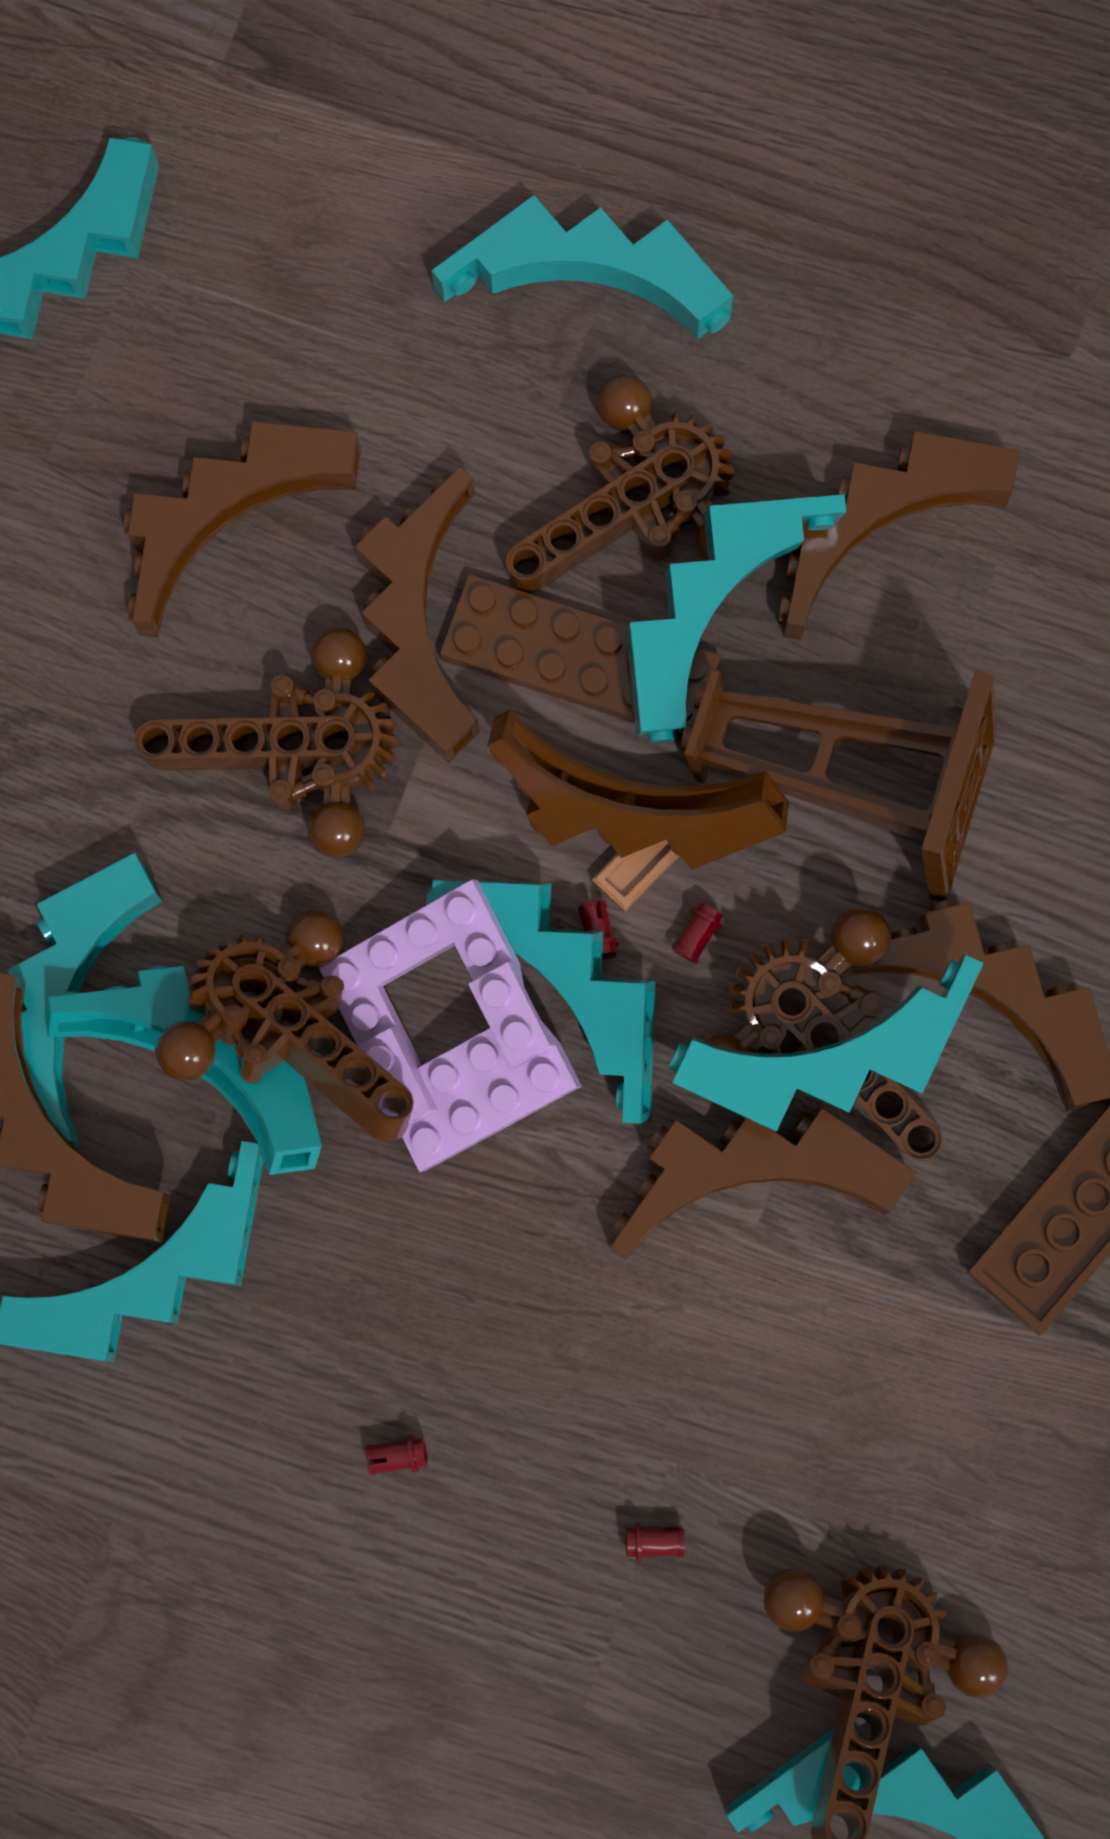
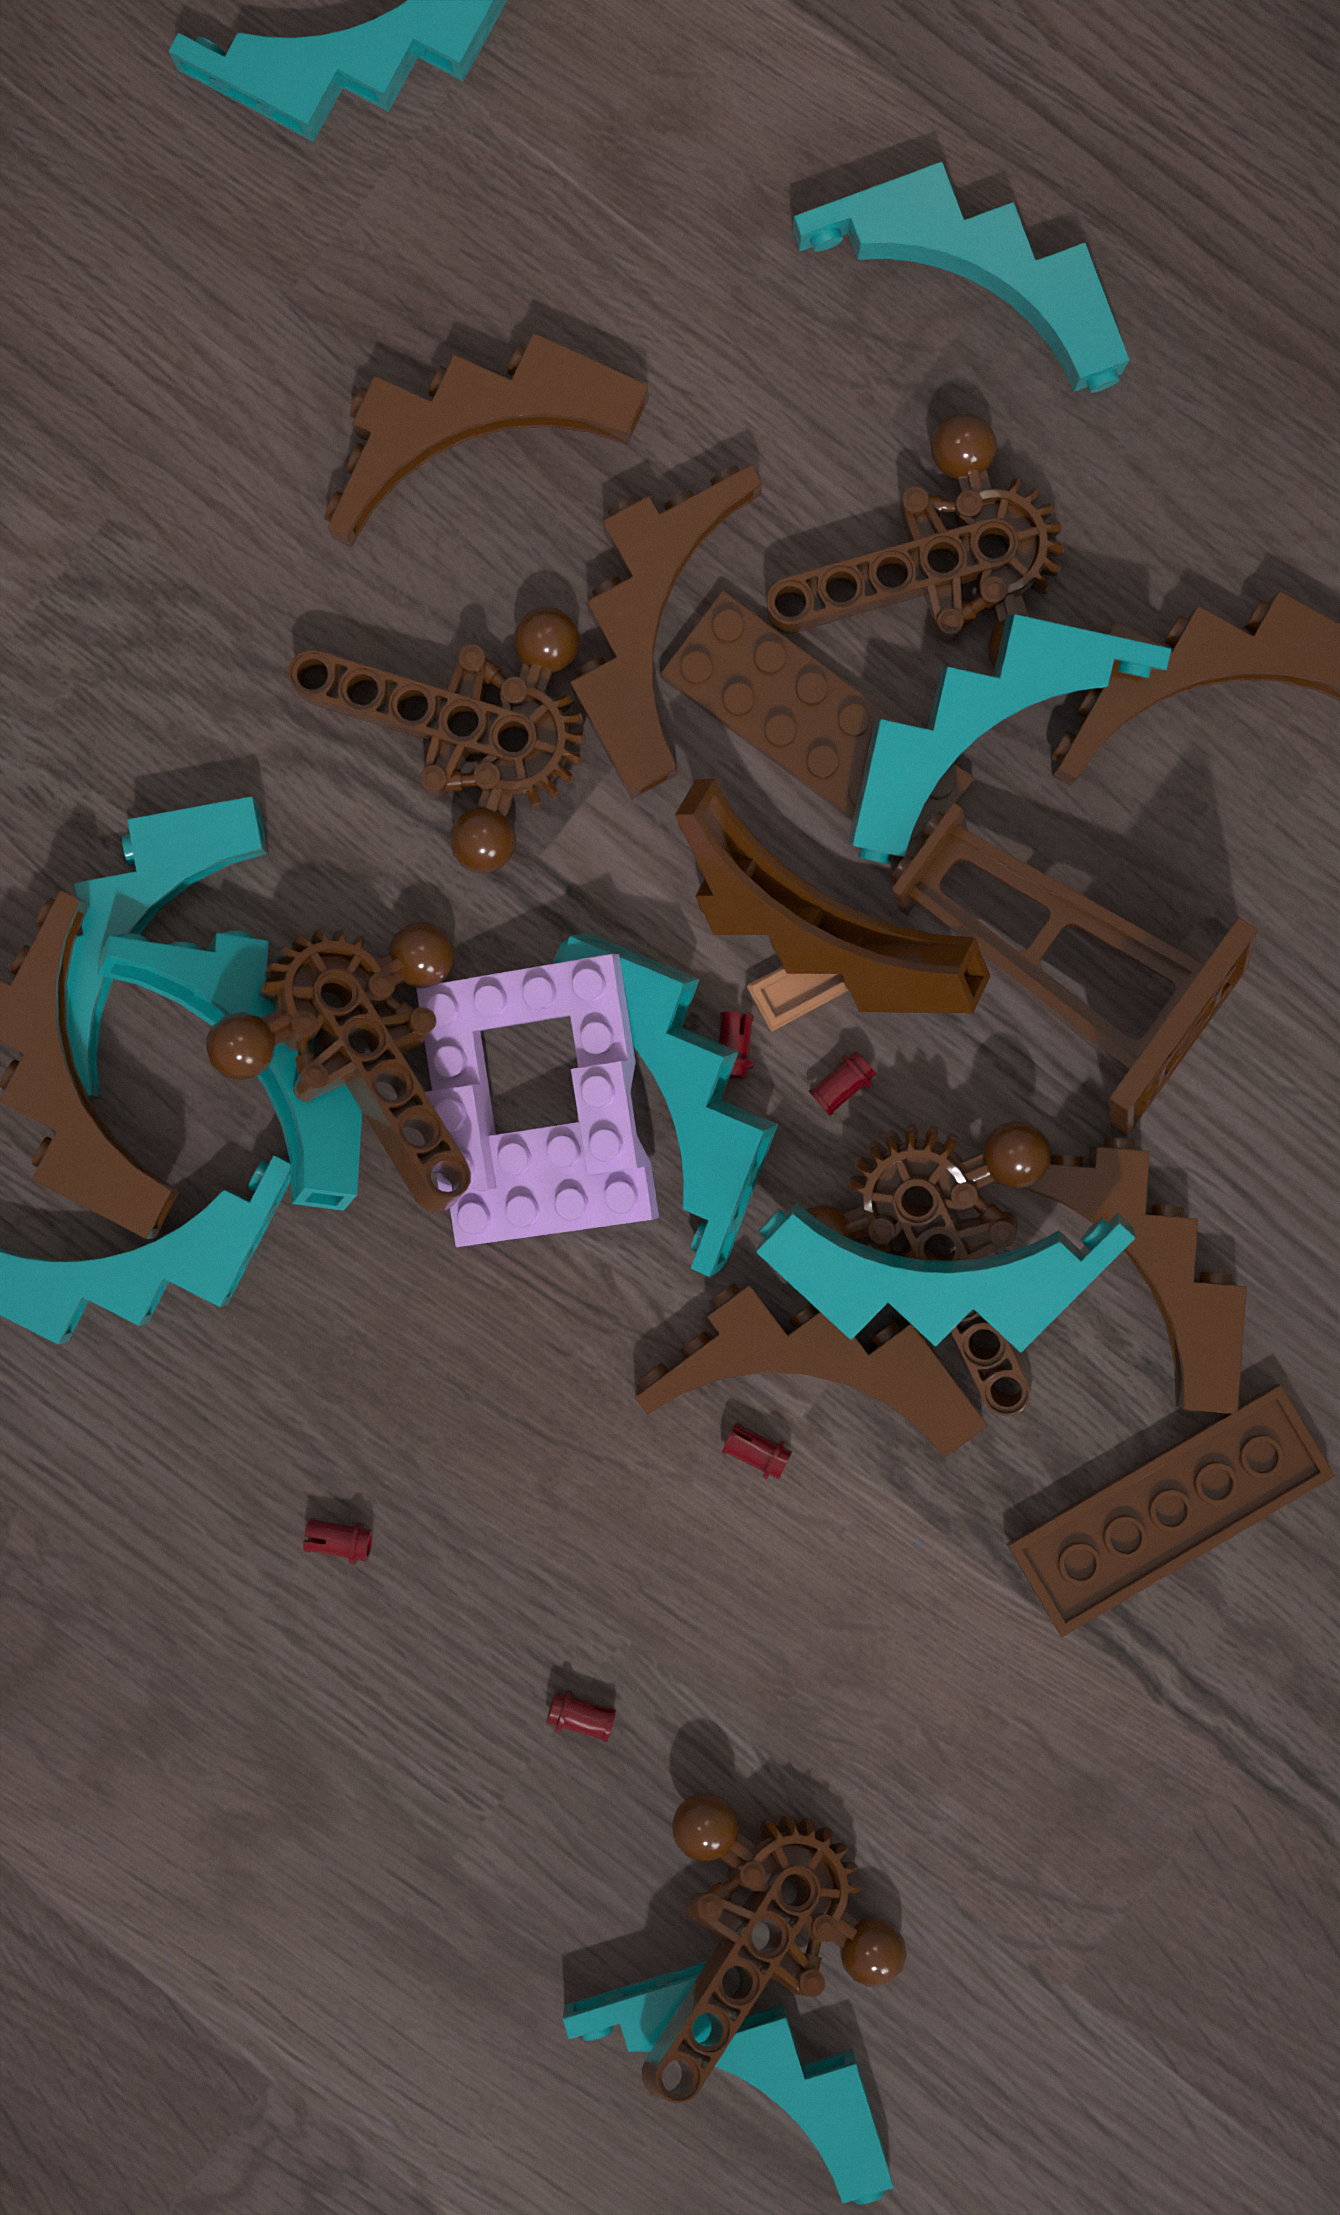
camera: 15 degrees right, 10 degrees up
(729, 1262) = (757, 1451): none -> dark red pin

